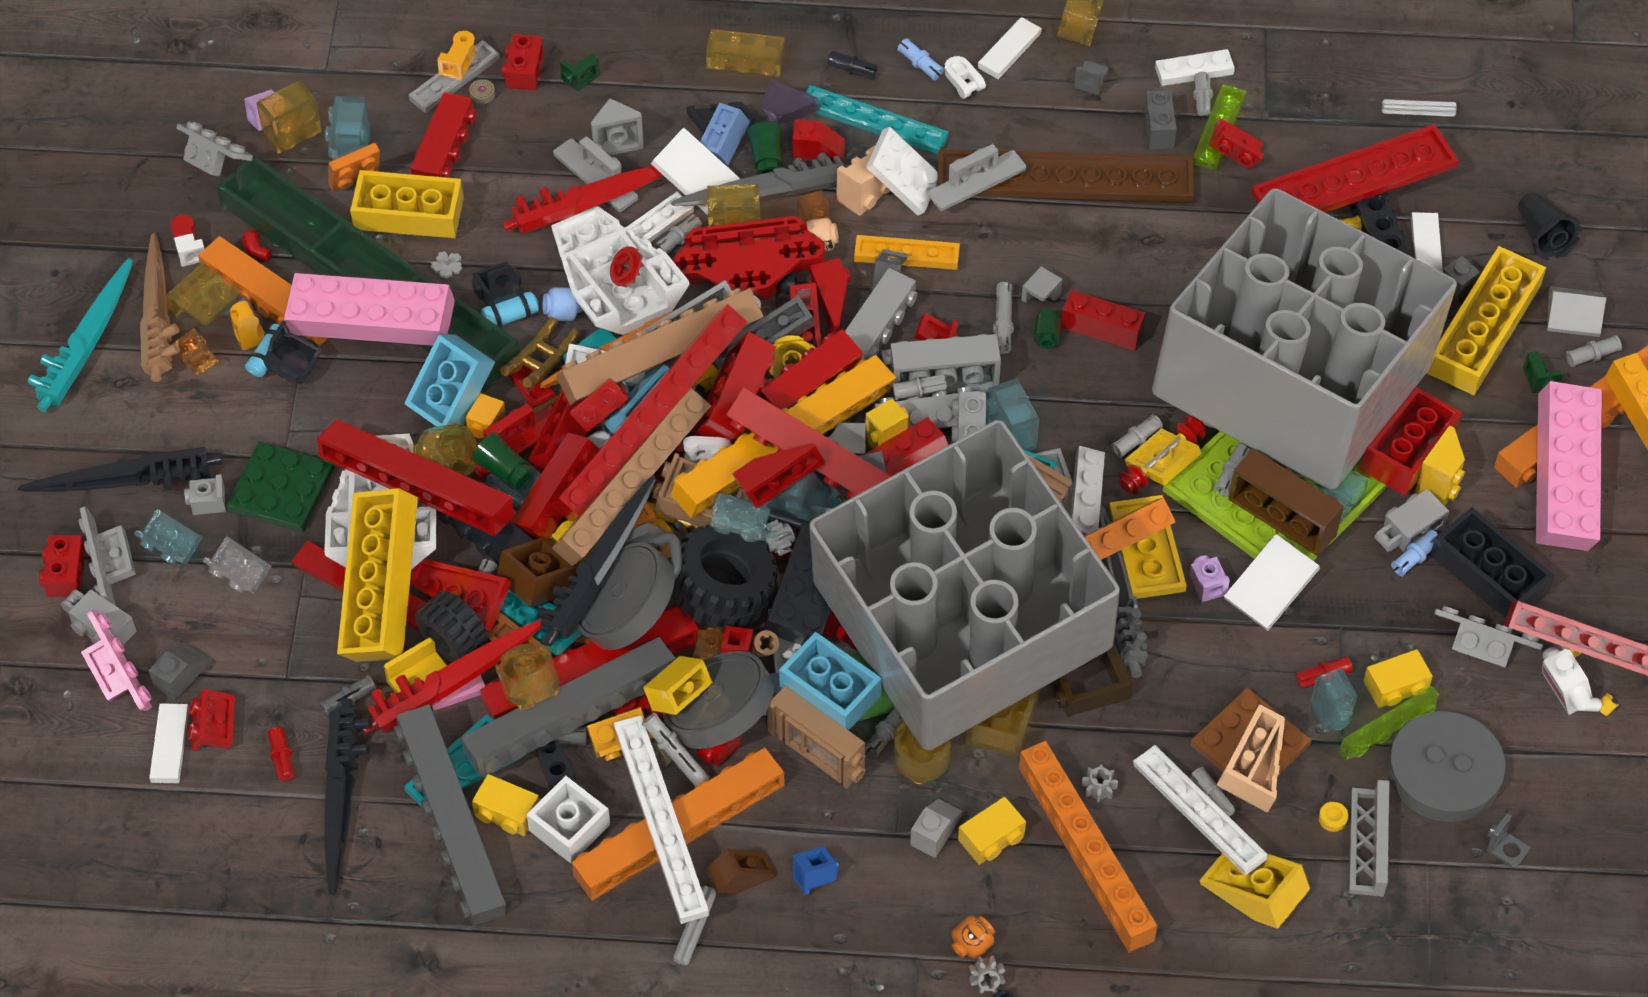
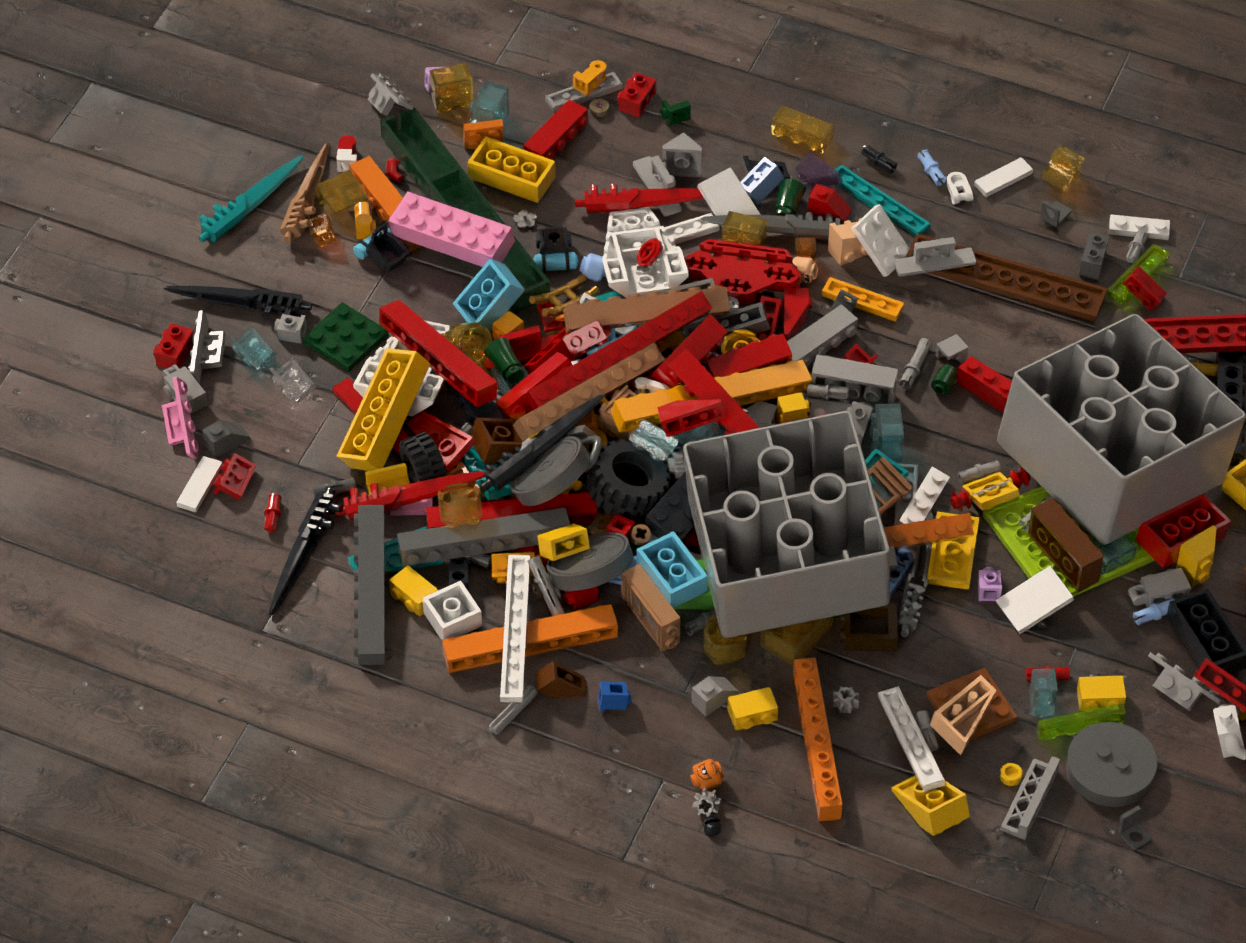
camera: 20 degrees right, 5 degrees down
(677, 234) = (693, 245): light grey pin -> none

